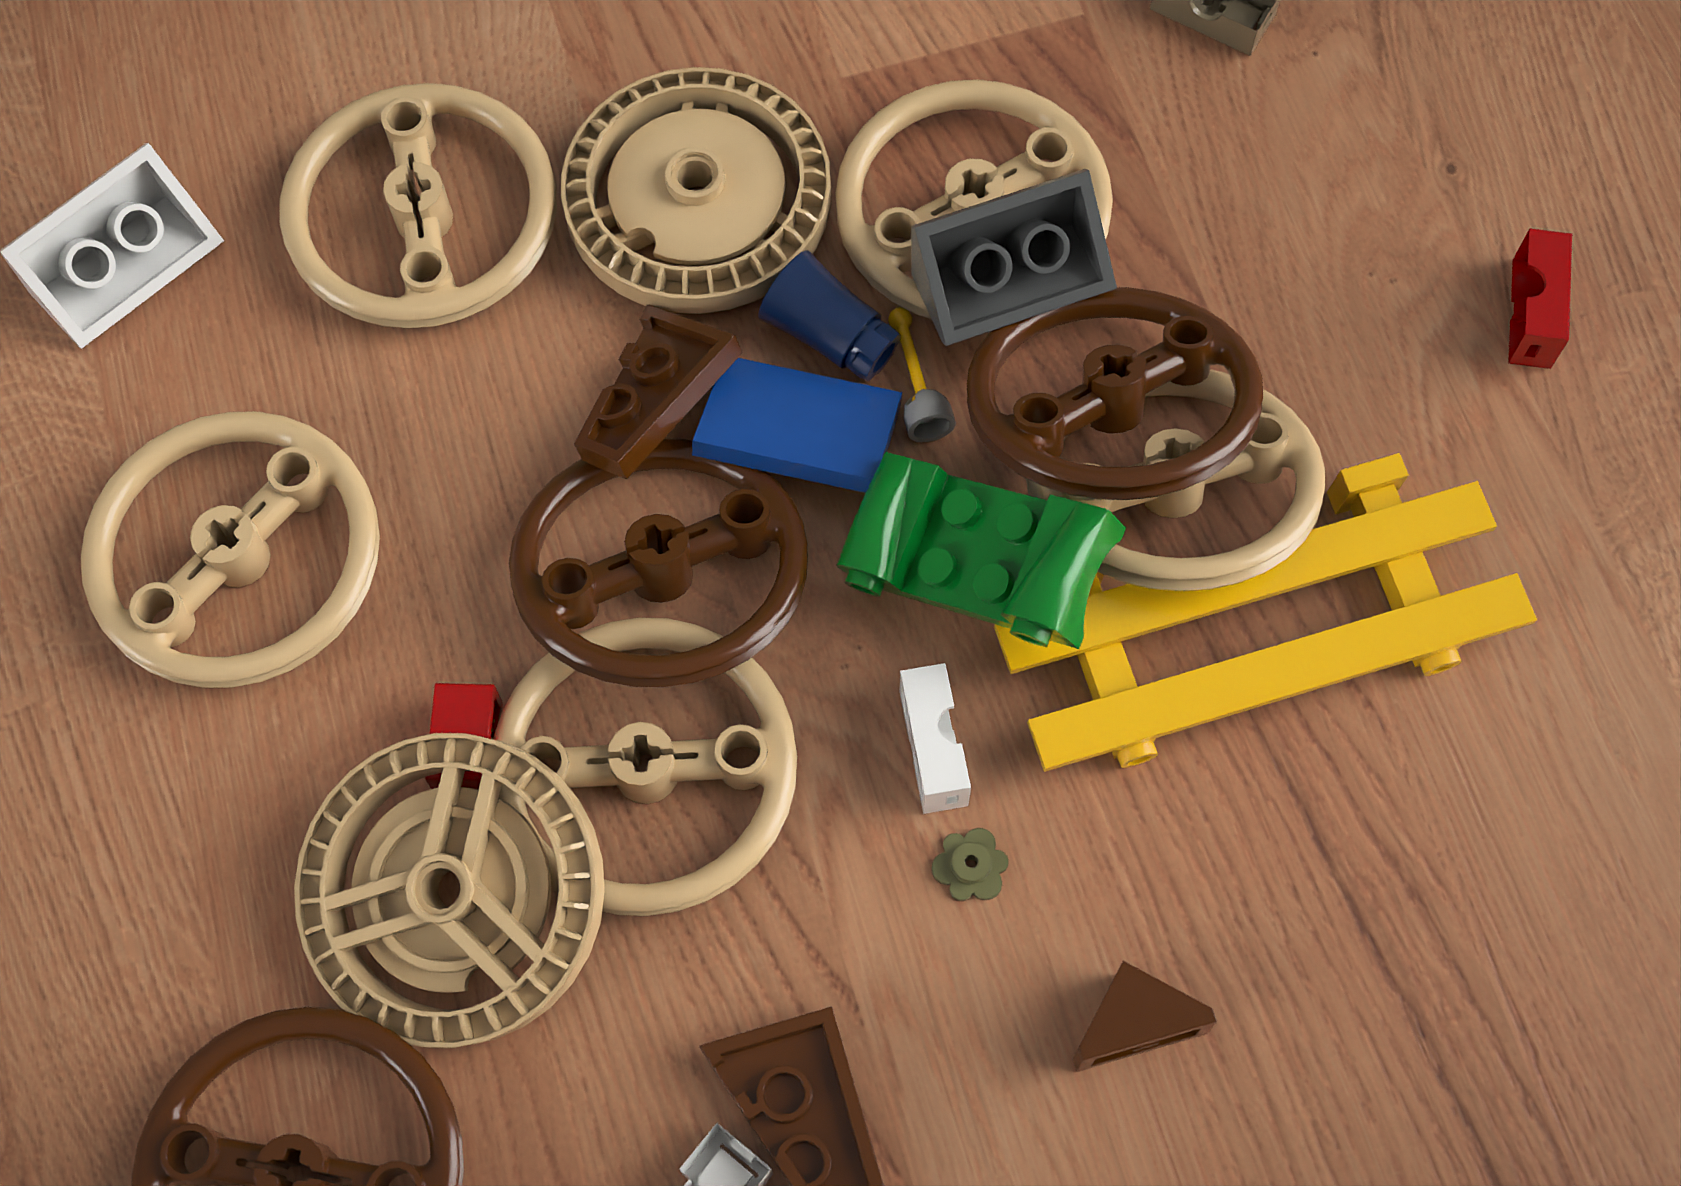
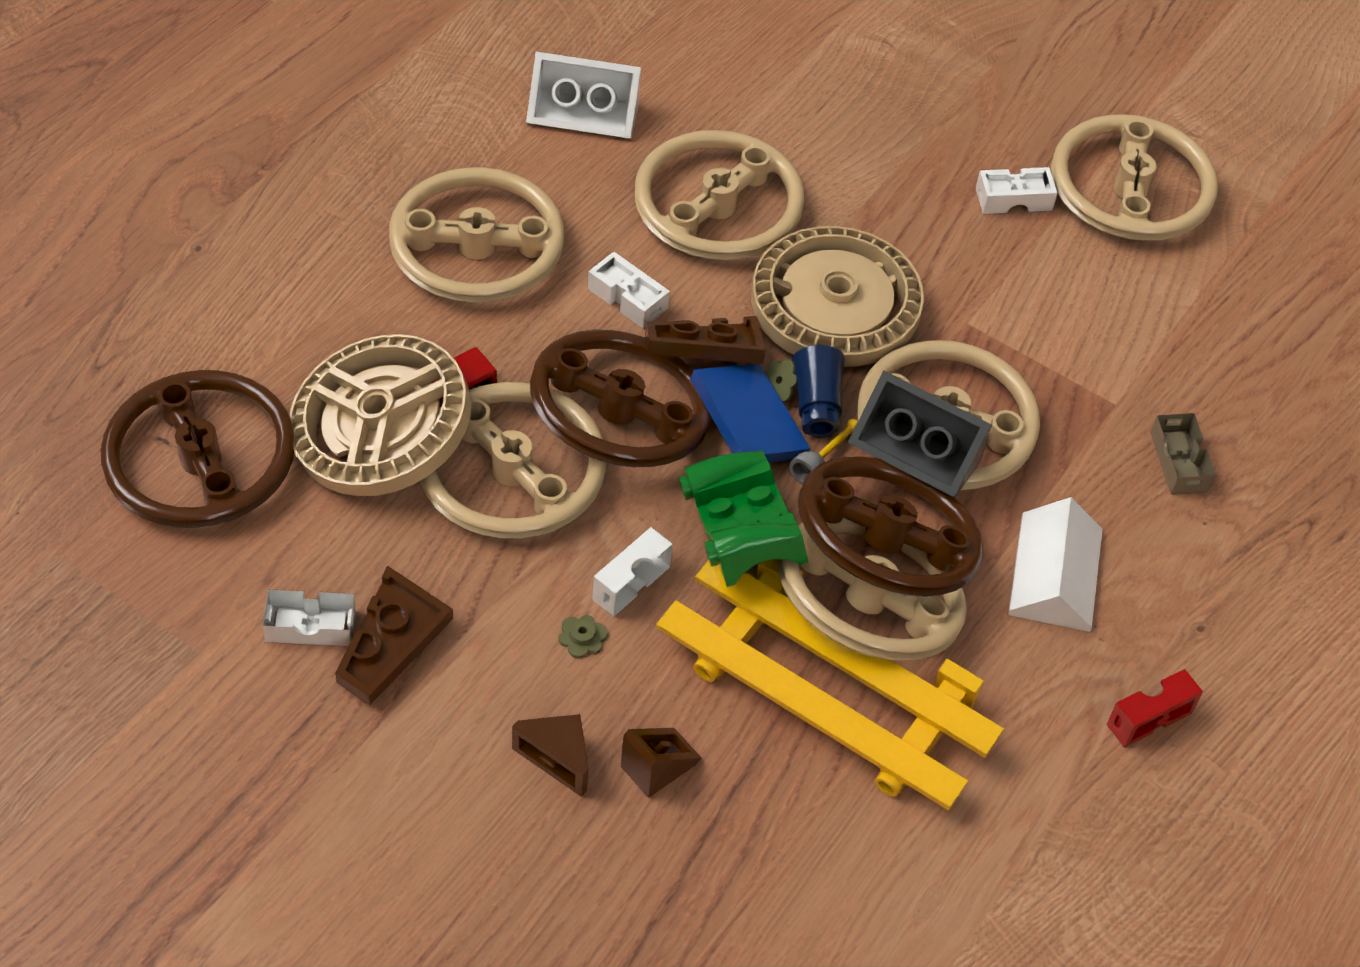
camera: 45 degrees right, 15 degrees down
(479, 421) = (636, 292): none -> white piece
(769, 332) = (782, 378): none -> olive plant
(1229, 903) = (656, 757): none -> reddish brown slope
(1267, 253) = (1056, 566): none -> white slope

